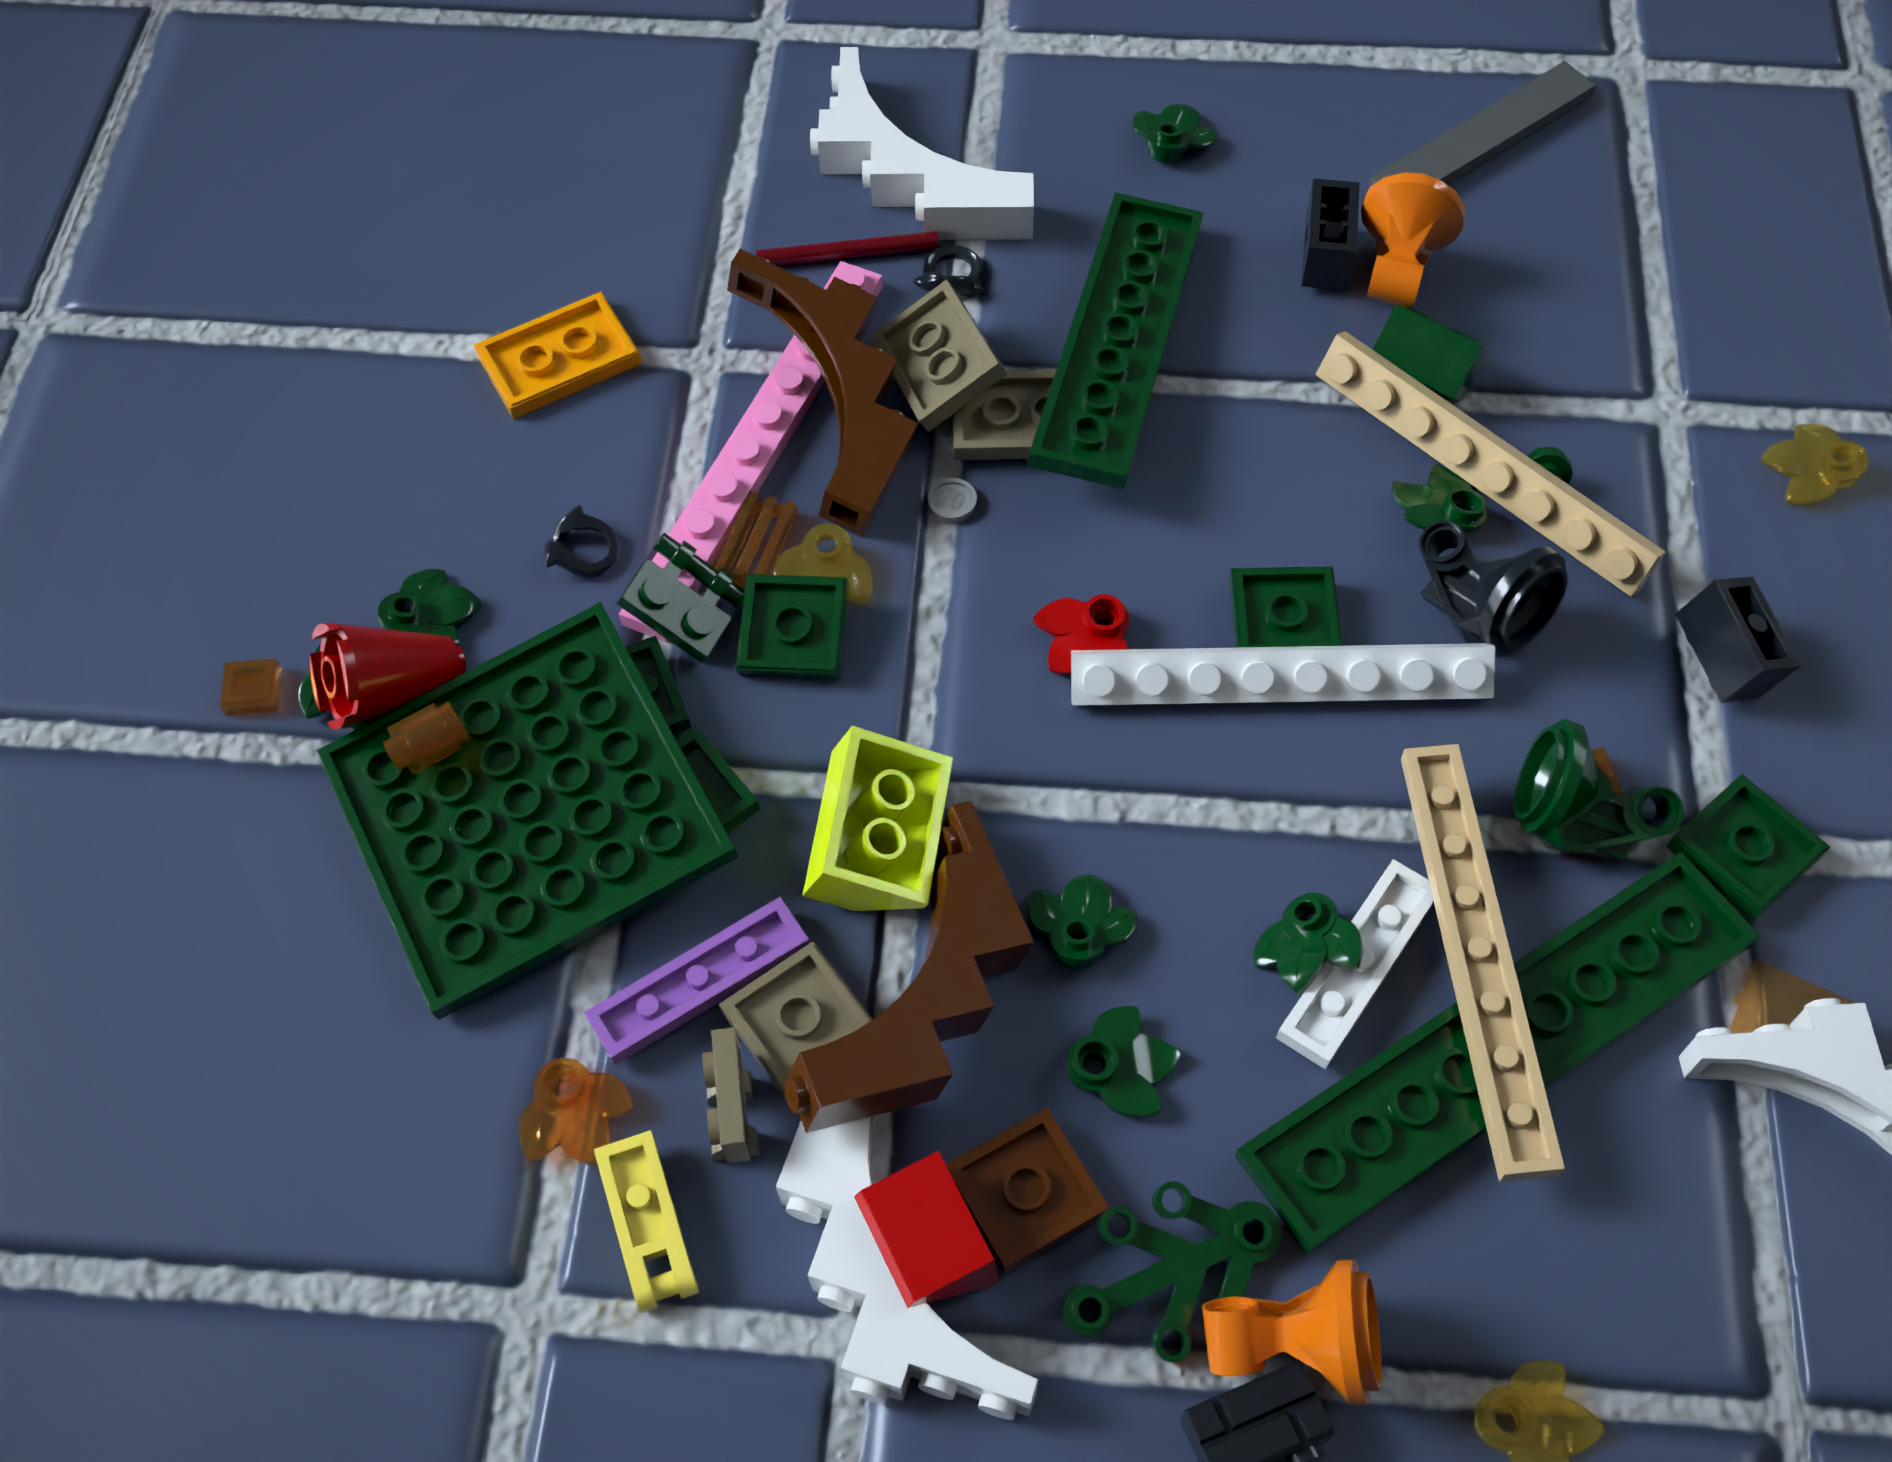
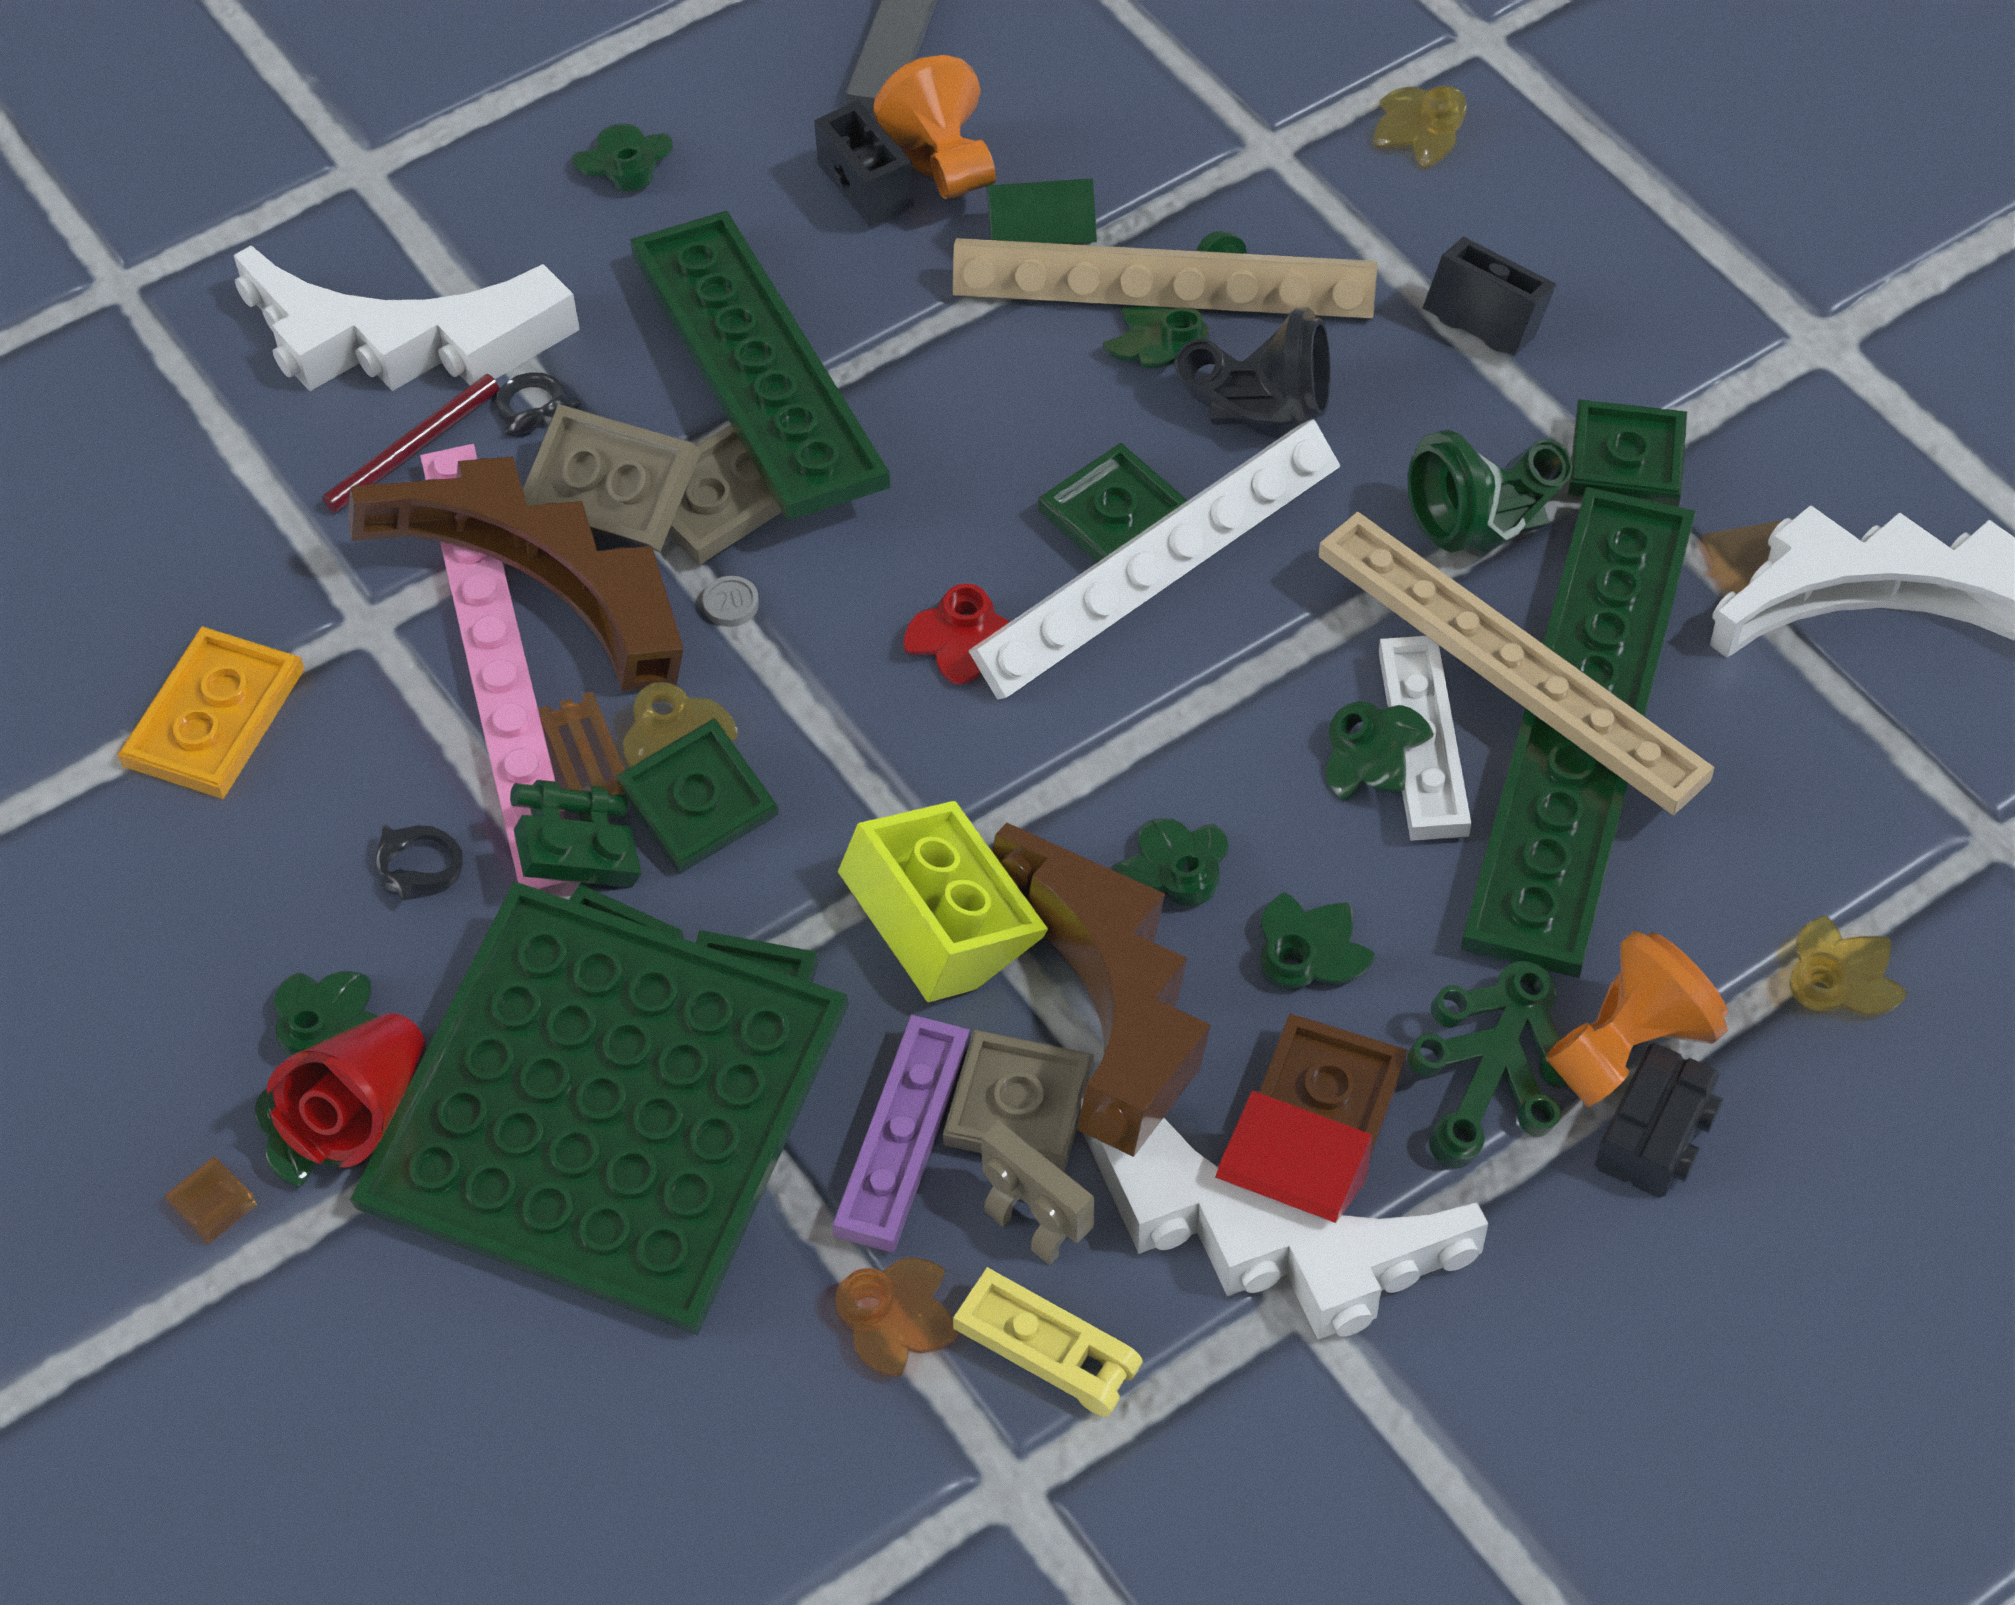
camera: 40 degrees left, 5 degrees down
(425, 737) = (467, 1101): clear orange brick -> none

